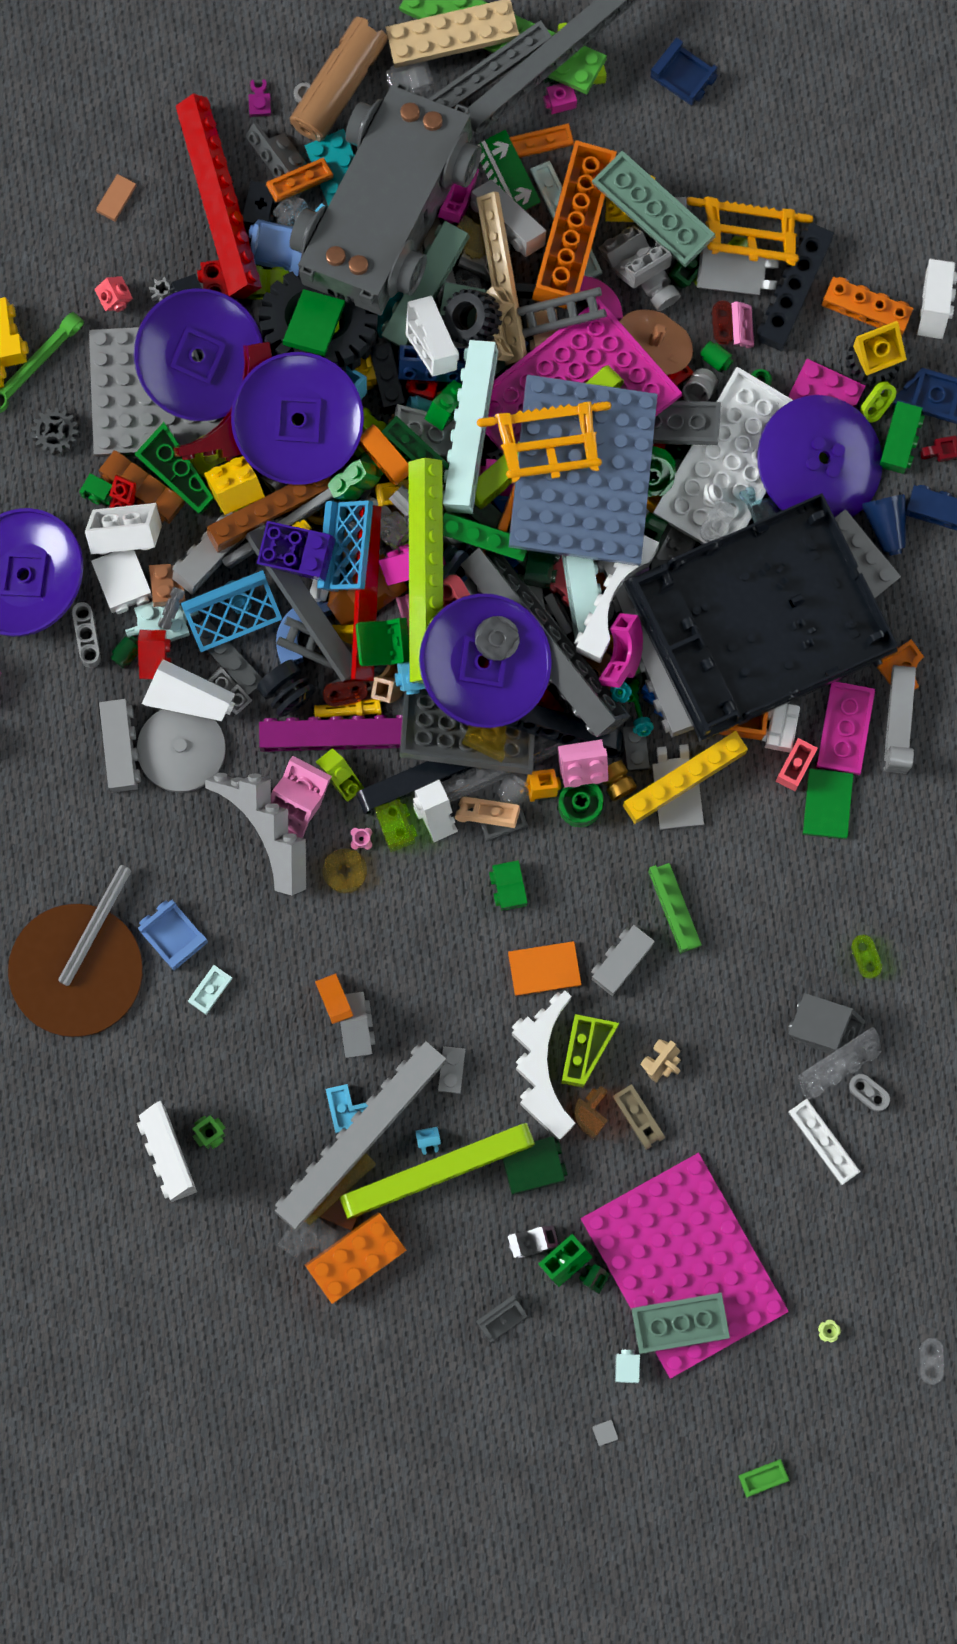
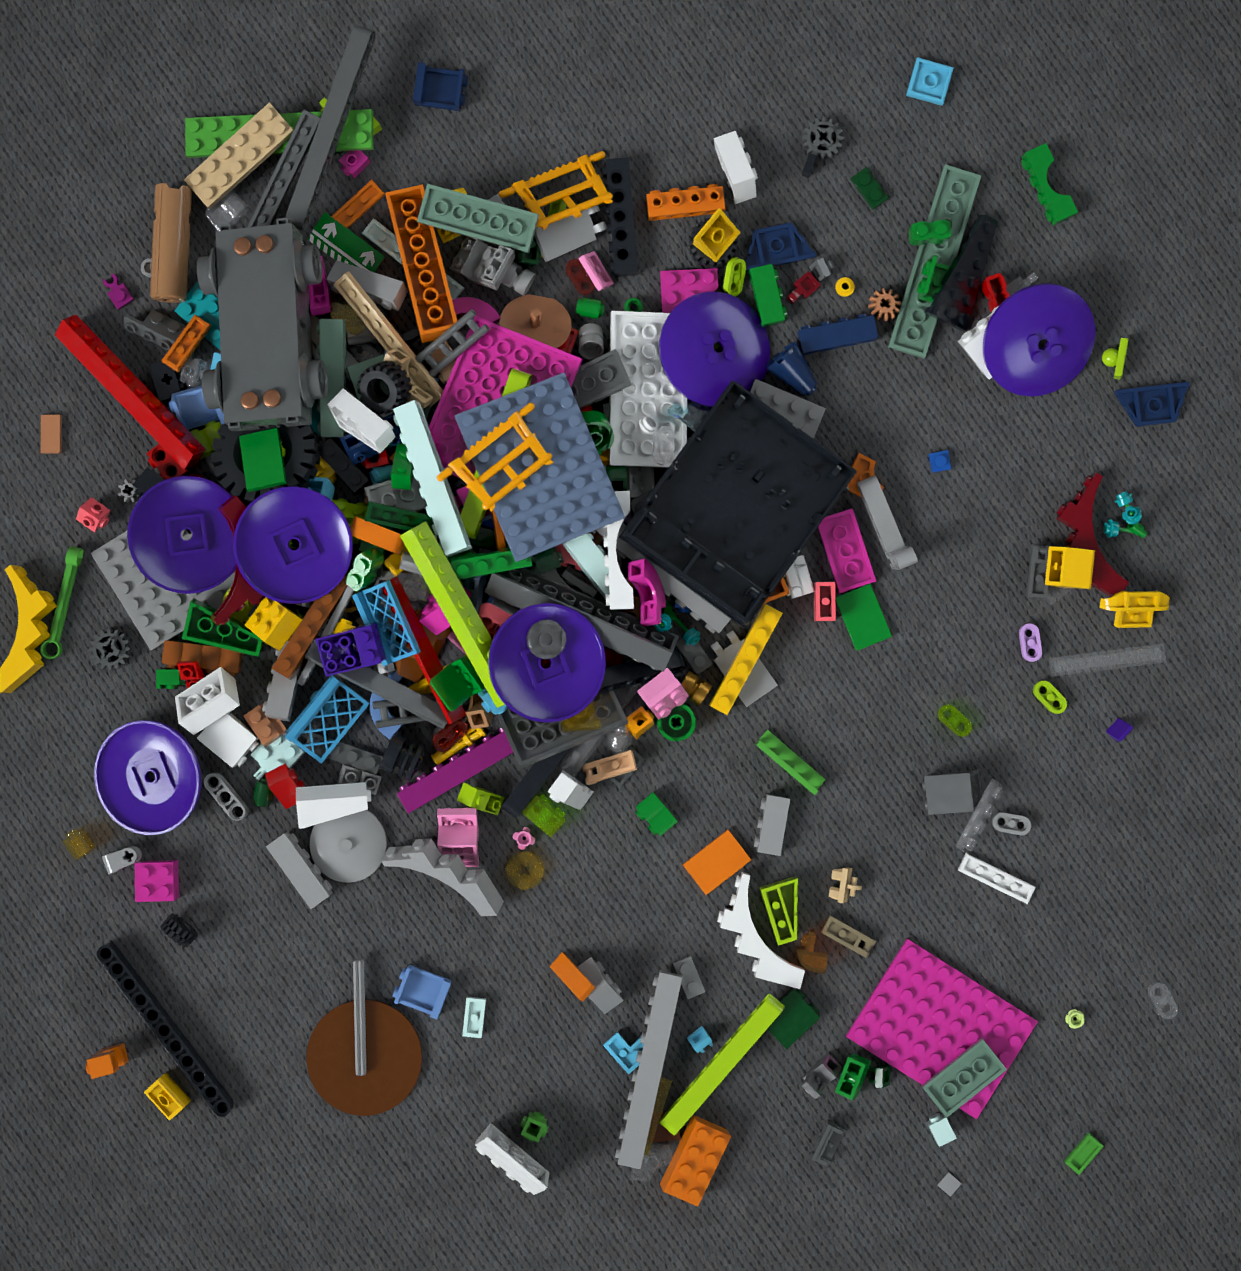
camera: 25 degrees left, 10 degrees up
(171, 608) = (279, 743): flat silver axle -> none

